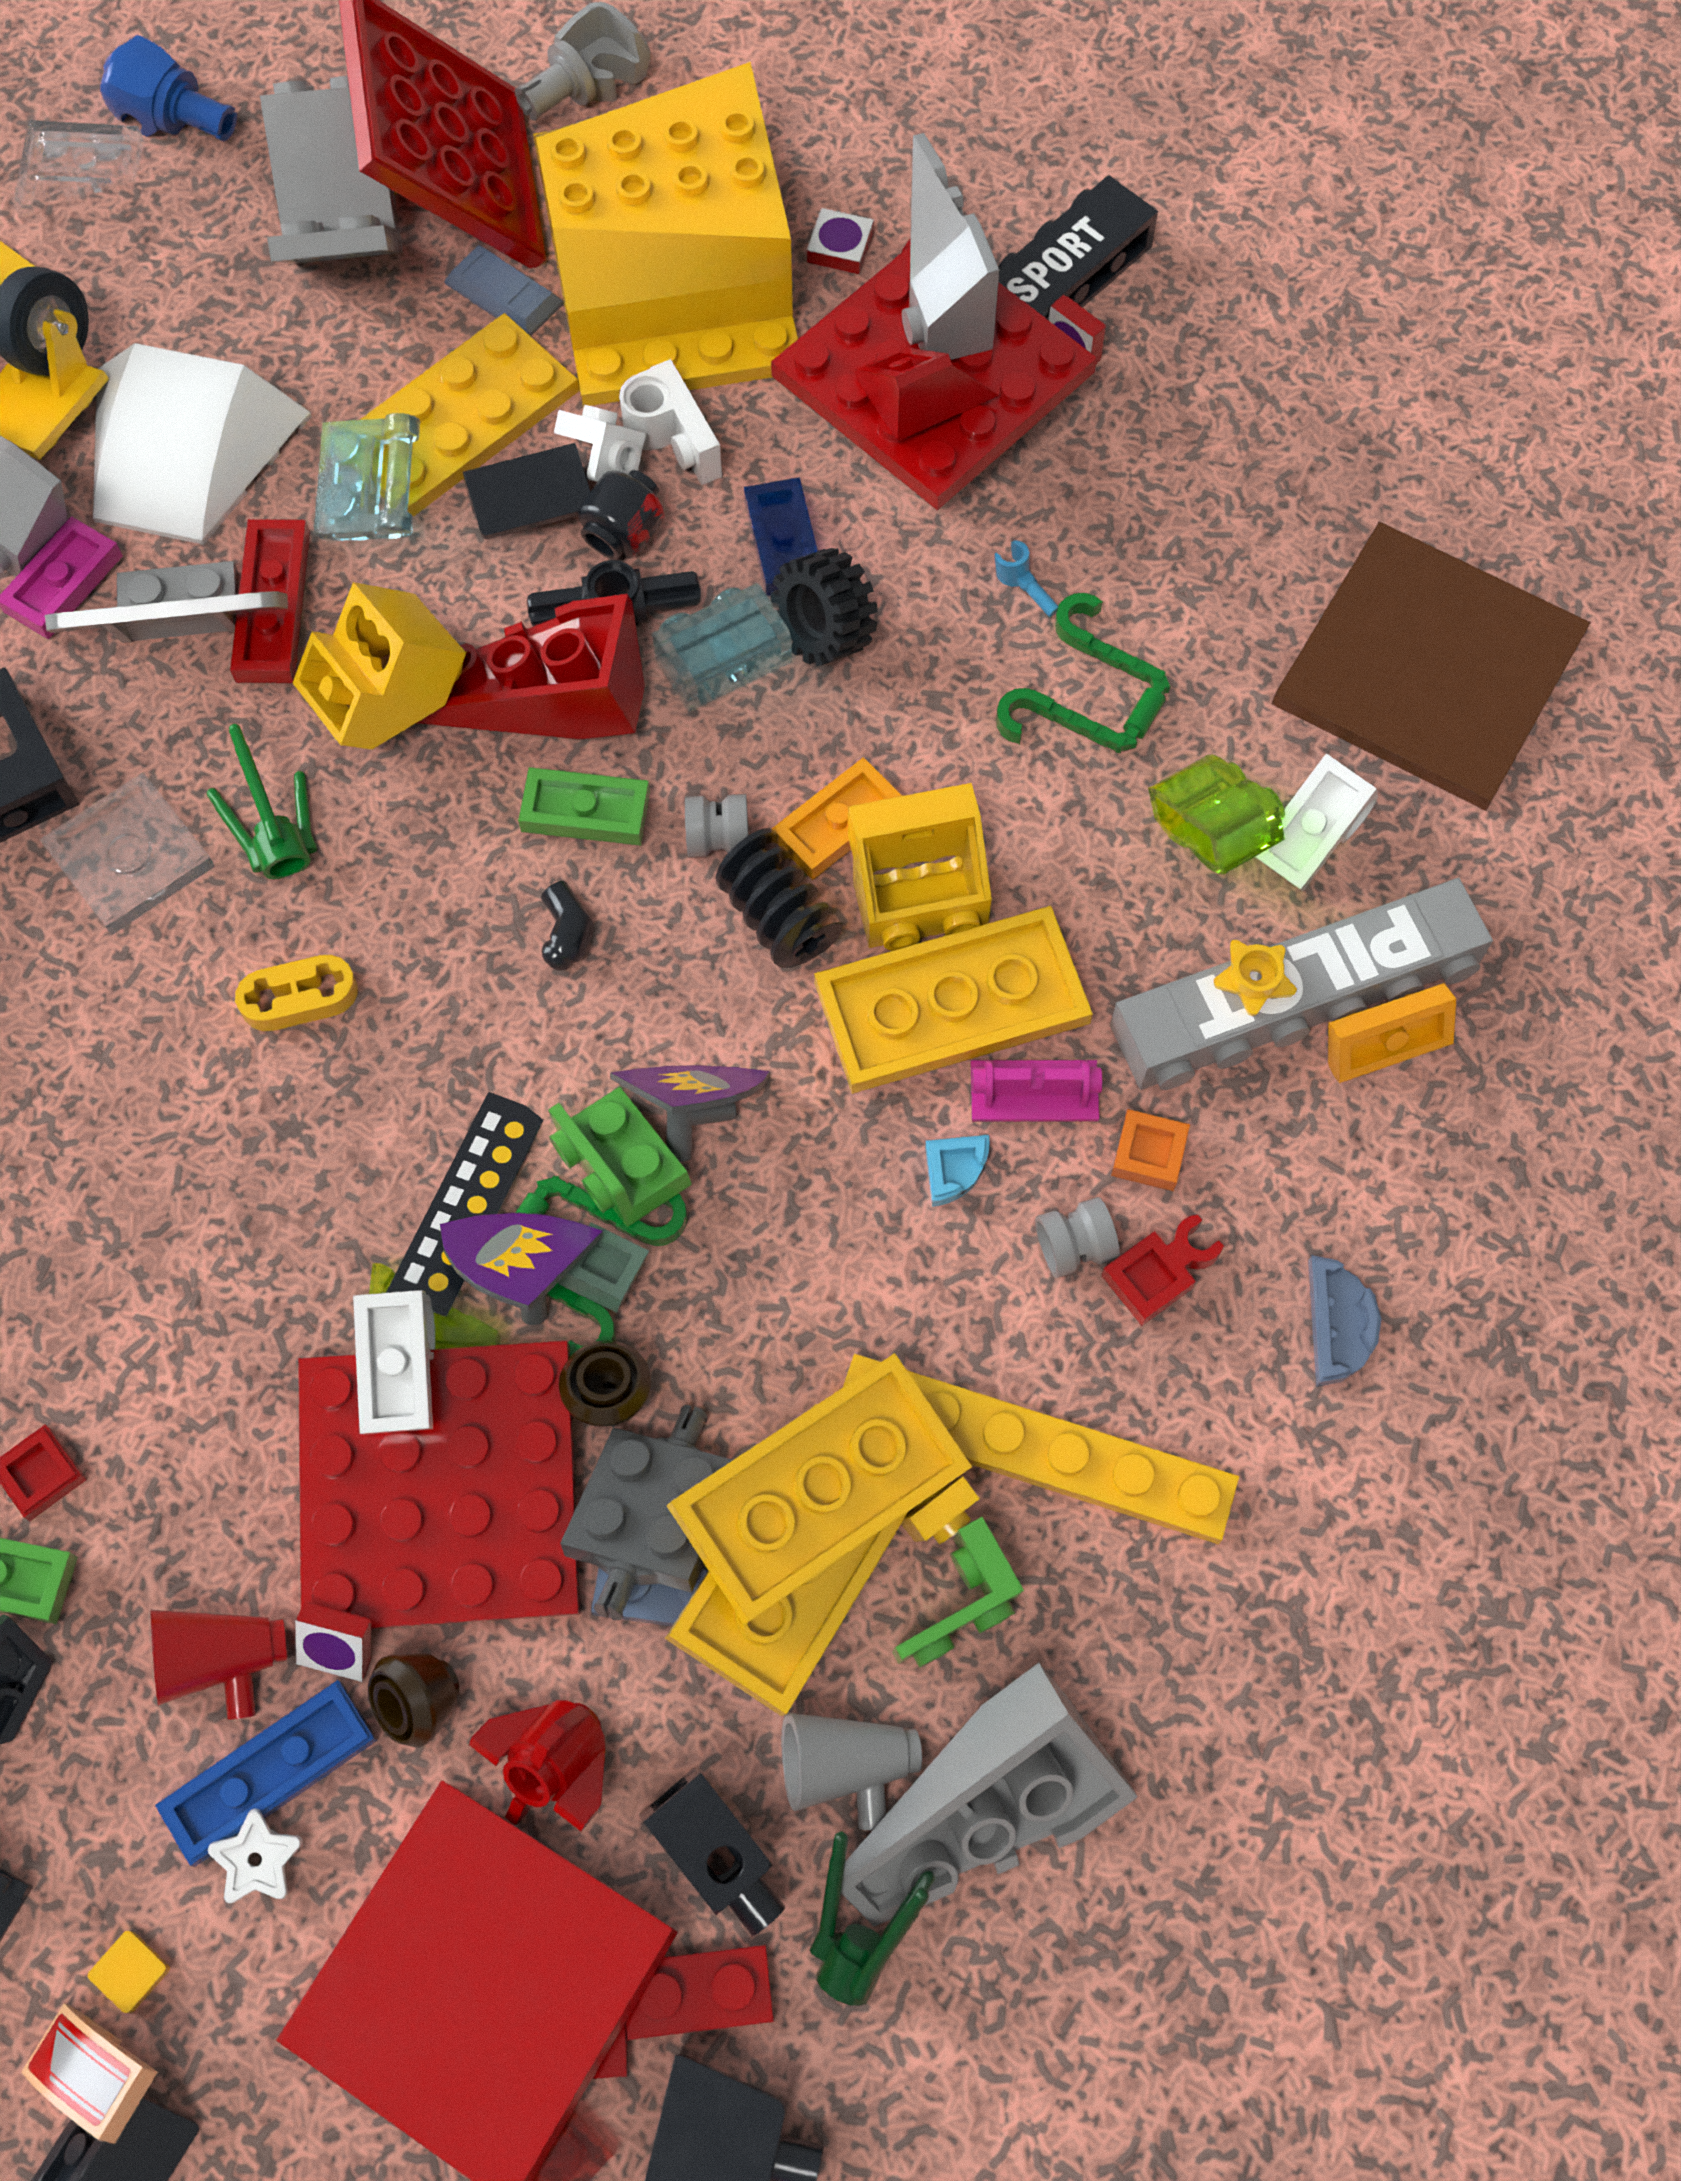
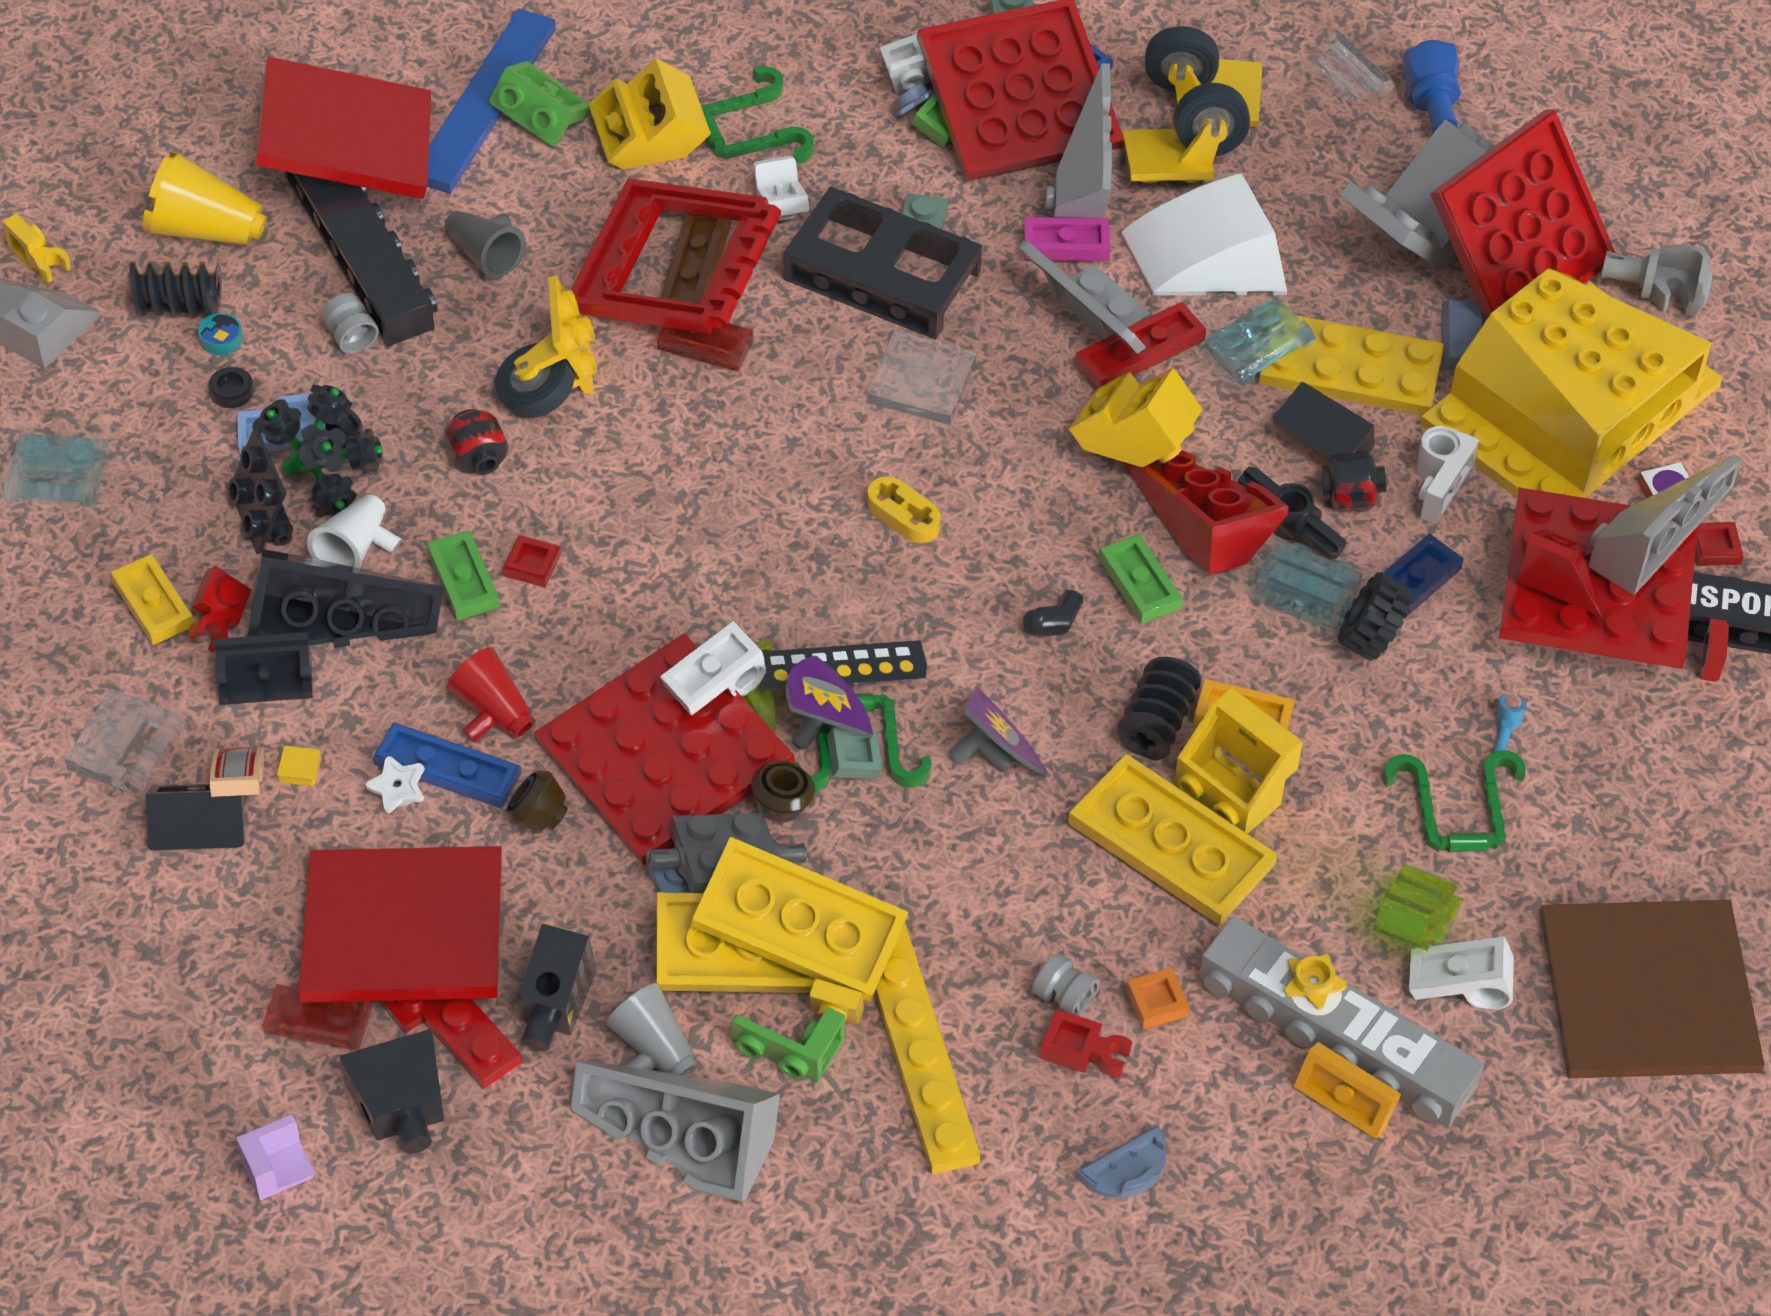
camera: 55 degrees right, 15 degrees down
(278, 845) = (987, 440): green plant -> none
(333, 1641) = (539, 745): tile -> none
(553, 1751) = (548, 883): red brick -> none
(613, 445) = (1395, 444): white bracket -> none
(620, 1154) = (926, 720): bright green bracket -> none
(714, 824) = (1180, 642): light grey wheel -> none
(858, 1954) = (546, 1097): dark green plant -> none
(954, 1166) = (1065, 902): medium azure tile -> none
(1035, 1090) = (1147, 915): dark pink hinge -> none

